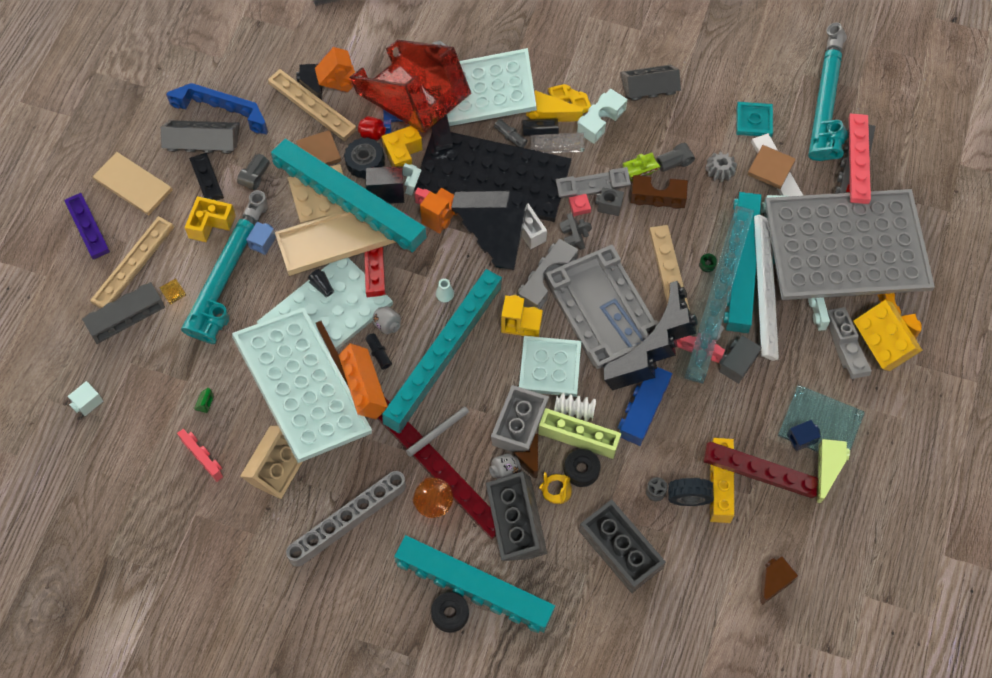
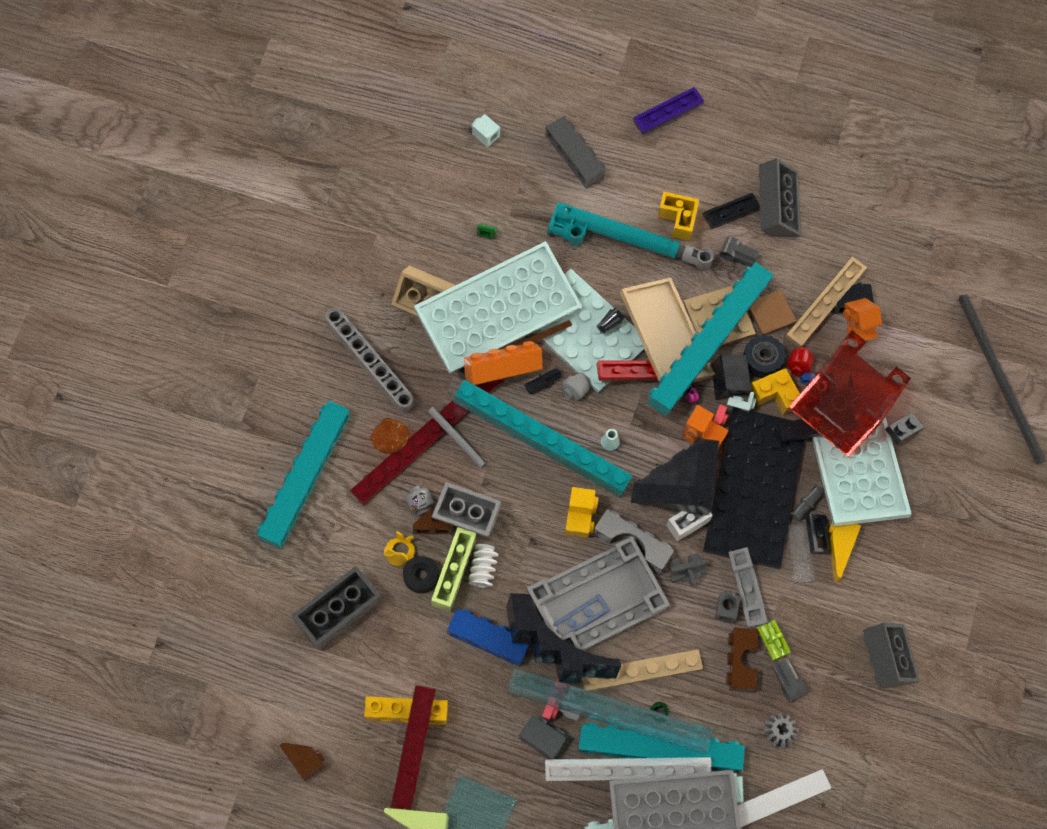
camera: 85 degrees right, 5 degrees up
(132, 183) = (720, 145): tan tile -> none
(132, 262) = (632, 155): tan tile -> none
(172, 291) = (600, 192): clear yellow plate -> none
(183, 95) = (825, 180): blue slope -> none
(201, 454) = (431, 231): coral plate -> none
(261, 238) = (663, 265): medium blue brick -> none
(450, 624) = (278, 443): black tyre -> none
(516, 517) = (367, 510): dark grey slope -> none
(550, 365) = (530, 544): light aqua plate -> none
(567, 94) = (860, 576): yellow tile -> none
(579, 204) = (723, 576): coral plate -> none
(609, 105) = (853, 607): light aqua arch -> none
(657, 484) = (398, 642): dark grey wheel -> none
(690, 492) = (389, 675): black wheel -> none
(754, 119) = (851, 775): teal tile -> none
(771, 166) = (784, 787): medium nougat tile -> none
(804, 435) = (455, 798): dark blue brick -> none

